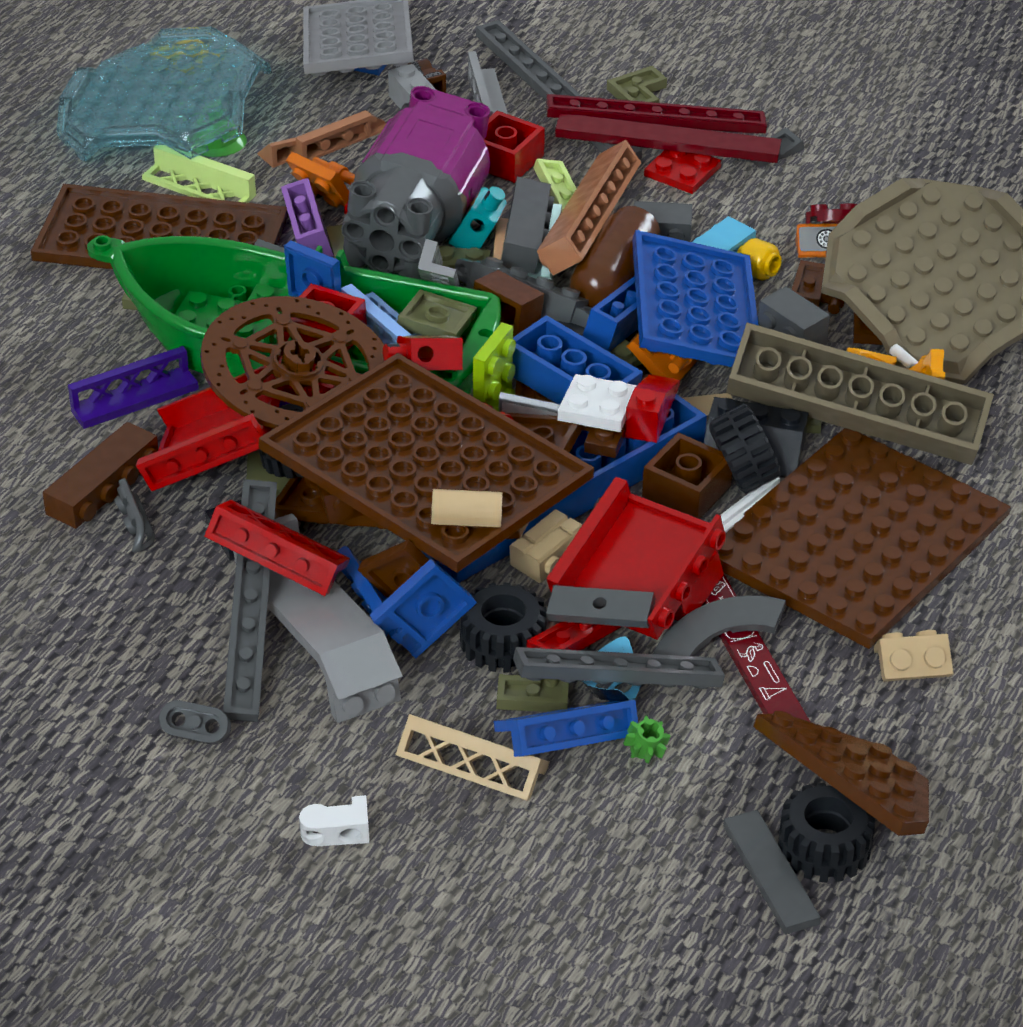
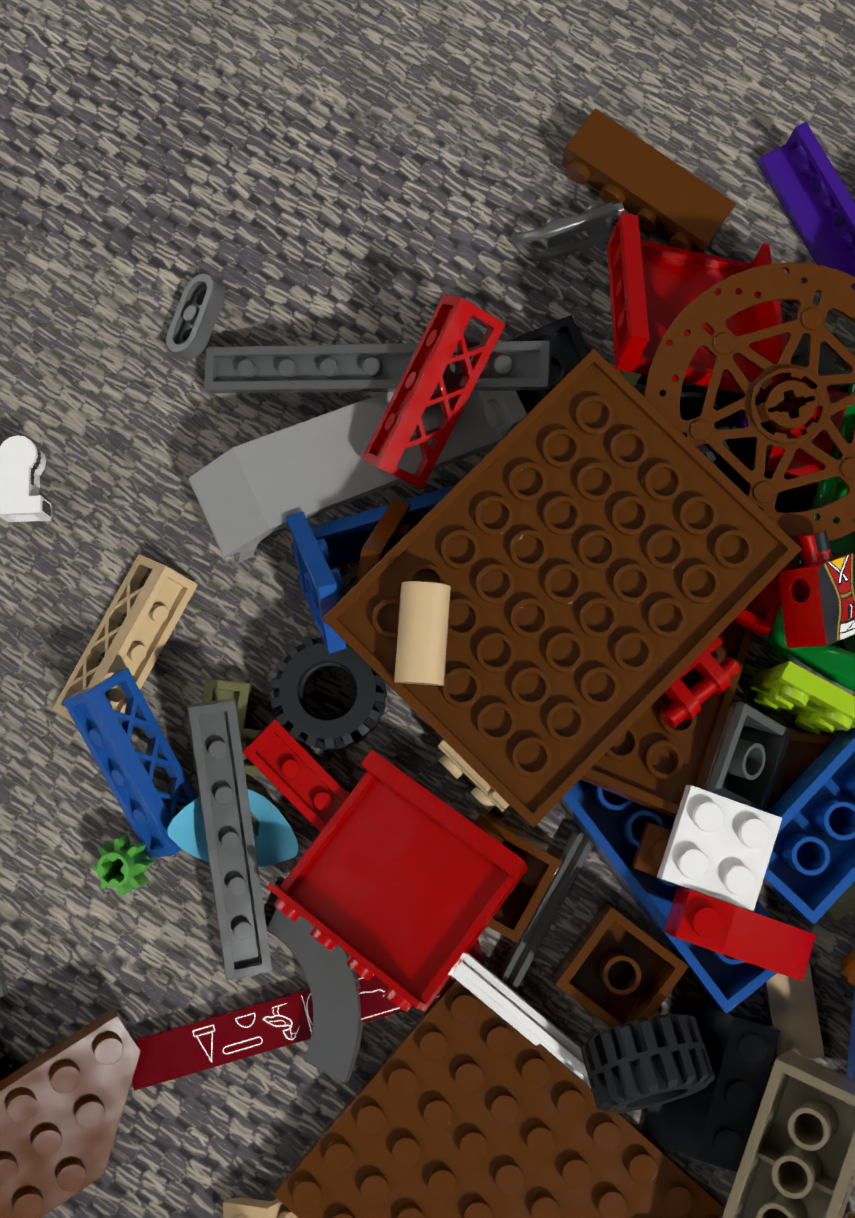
camera: 95 degrees right, 40 degrees up
(600, 606) = (307, 849): dark grey tile -> none

